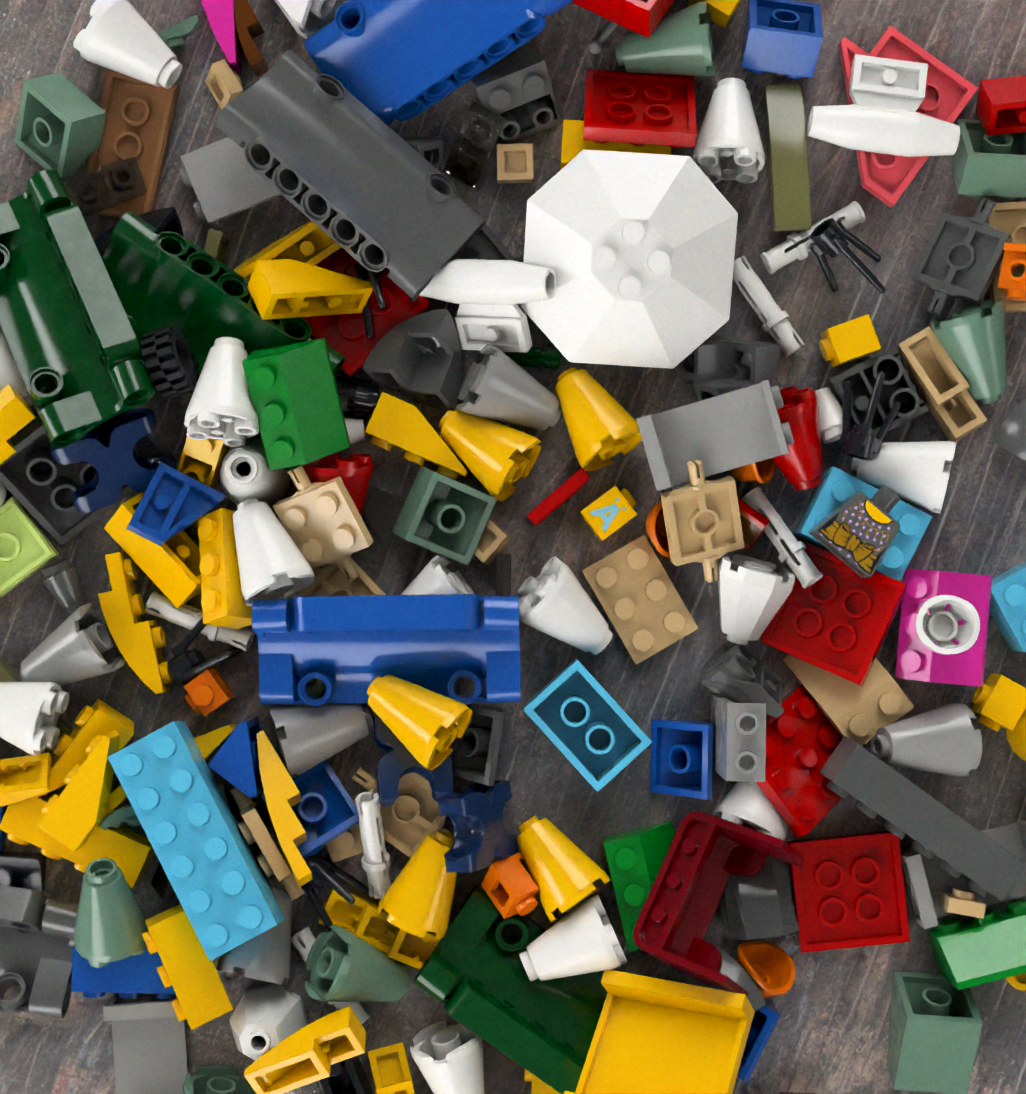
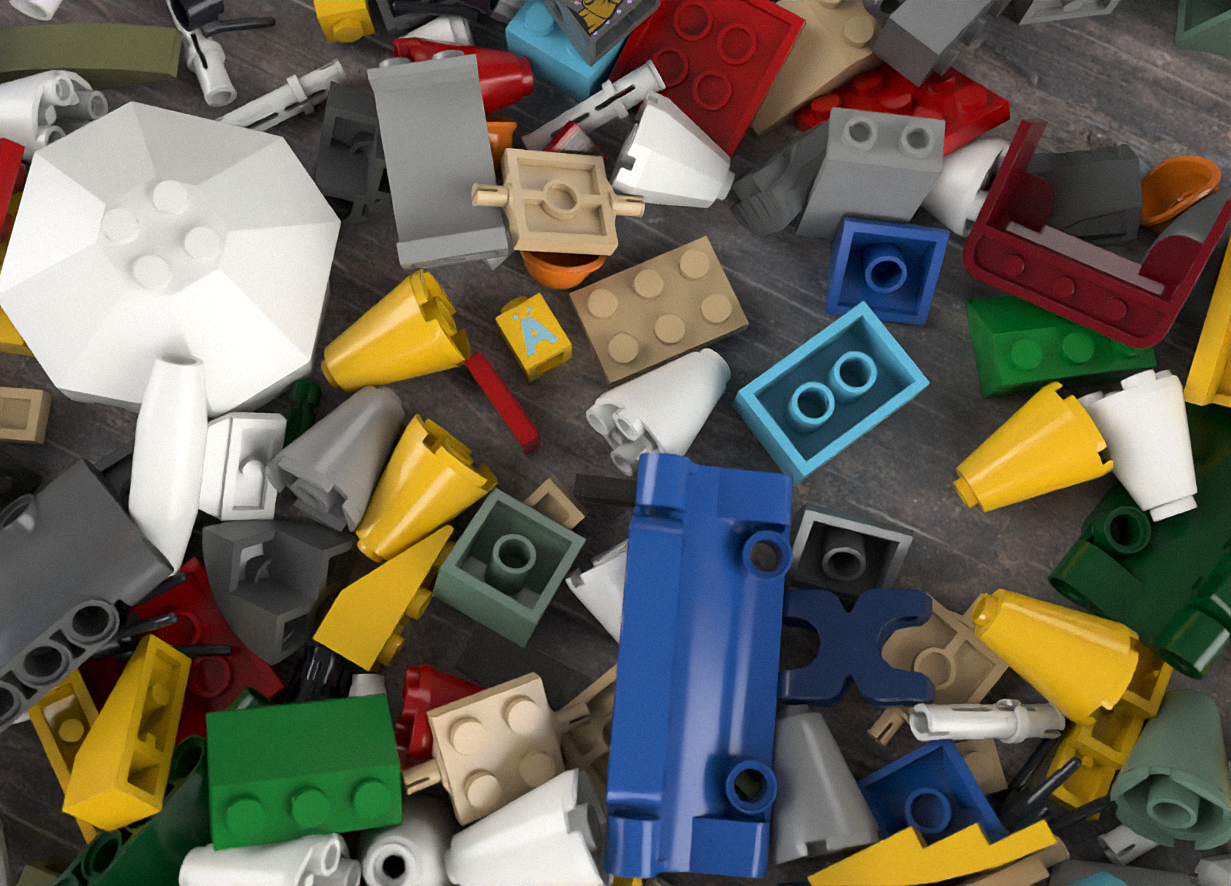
camera: 85 degrees left, 10 degrees down
(419, 717) = (806, 629): yellow cone -> none
(477, 826) = (975, 560): dark blue piece -> none
(510, 886) = (1058, 523): orange brick -> none
(849, 892) = (1079, 75): red plate -> none

